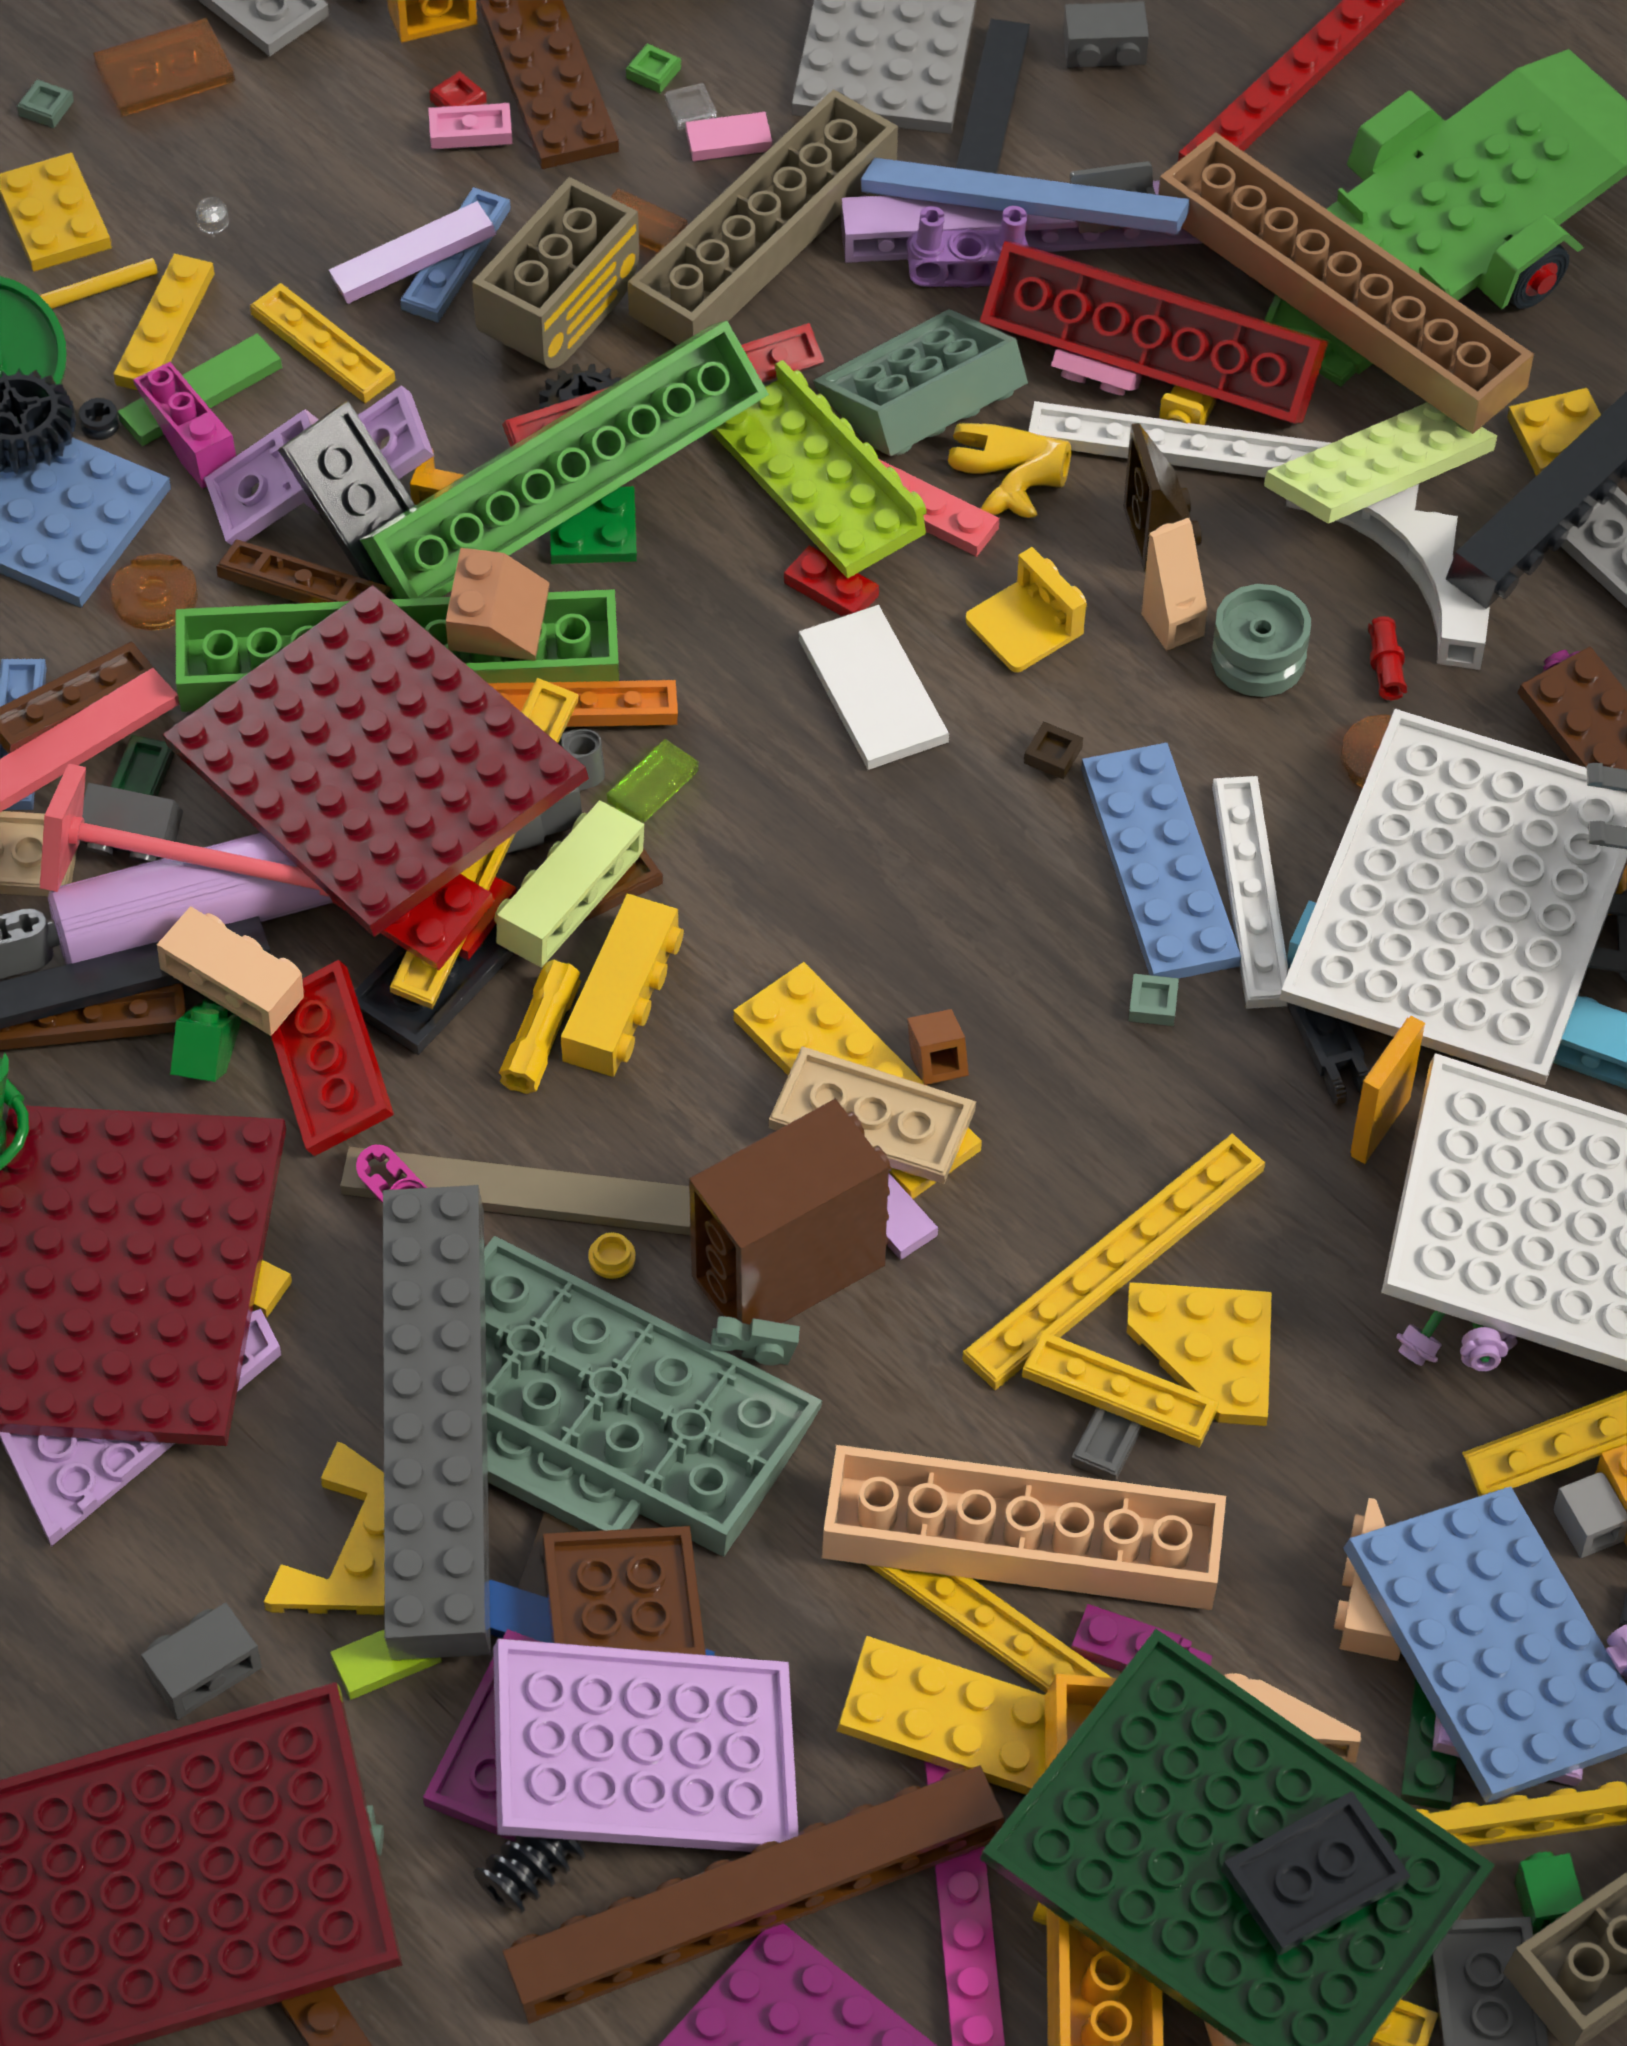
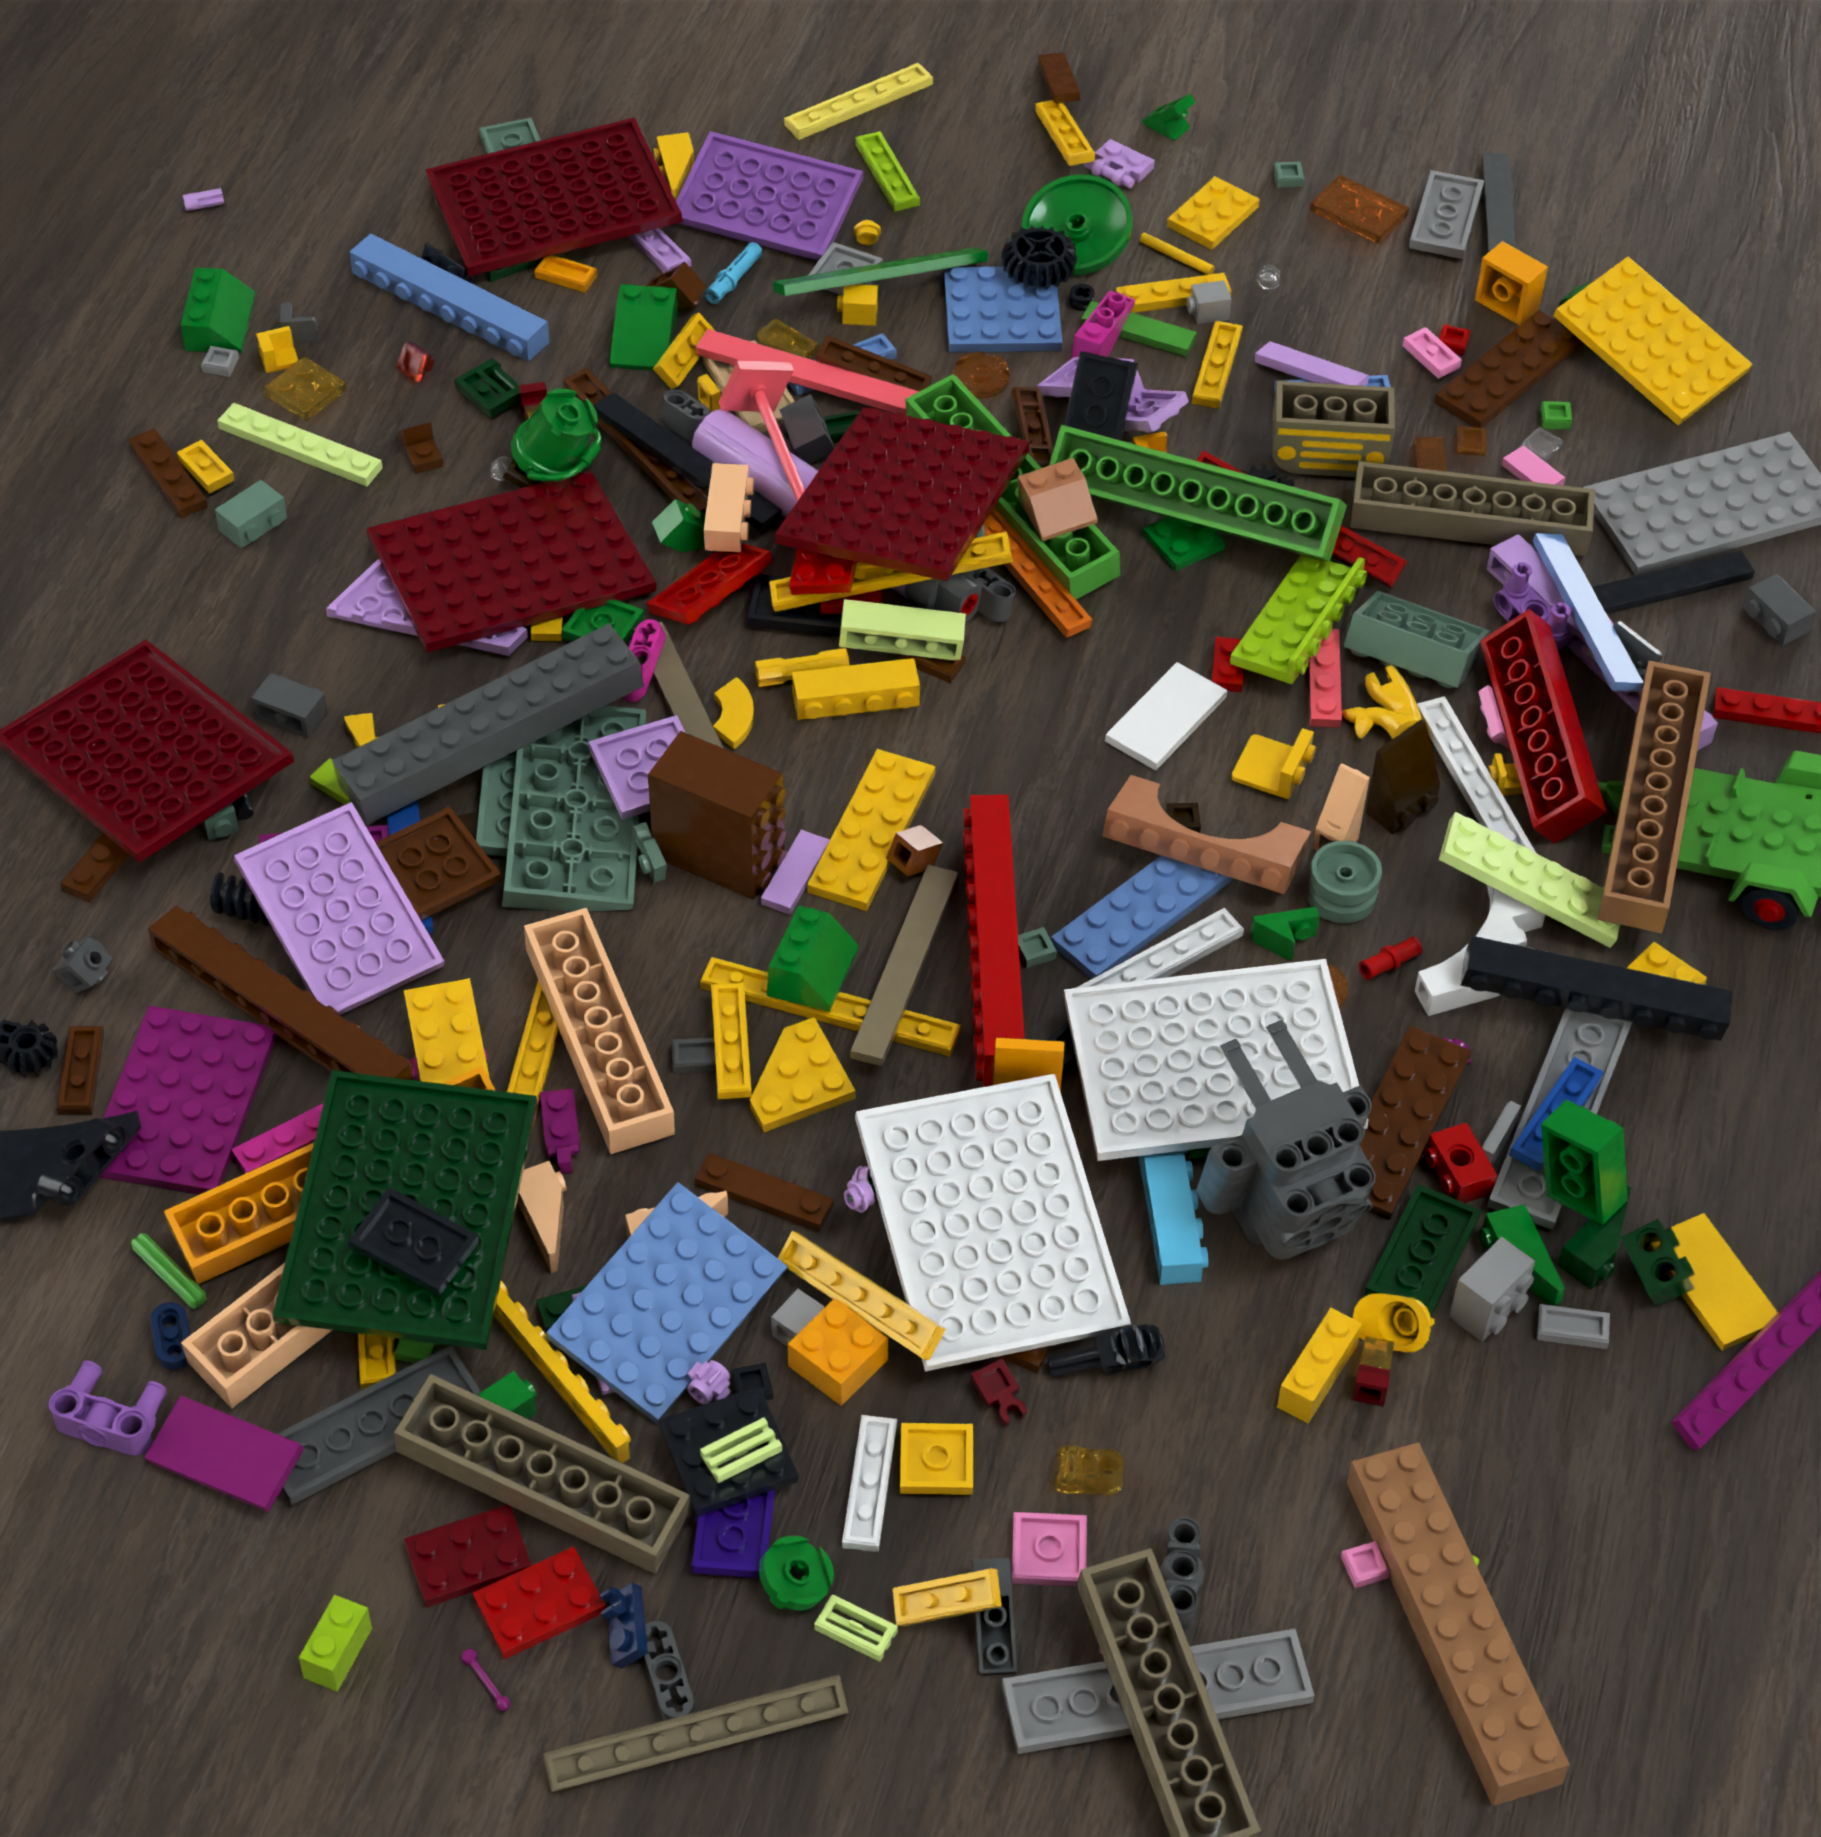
camera: 60 degrees right, 5 degrees down
(219, 293) = (1209, 302): none -> light grey brick
(312, 1218) = (616, 613): none -> green plate
(563, 1137) = (736, 713): none -> yellow tile
(615, 1272) = (628, 758): none -> lavender plate
(636, 167) = (1471, 440): none -> clear orange tile
(653, 781) = (1016, 645): clear neon green tile -> none
(908, 1120) = (842, 839): tan tile -> none
(1047, 1243) = (811, 960): none -> green slope
(1052, 790) = (1262, 860): none -> nougat arch
(1110, 1146) = (904, 966): none -> dark tan tile
(1145, 1028) = (992, 929): none -> red brick
(1291, 741) = (1281, 929): none -> green slope
(1365, 1465) = (764, 1191): none -> reddish brown plate

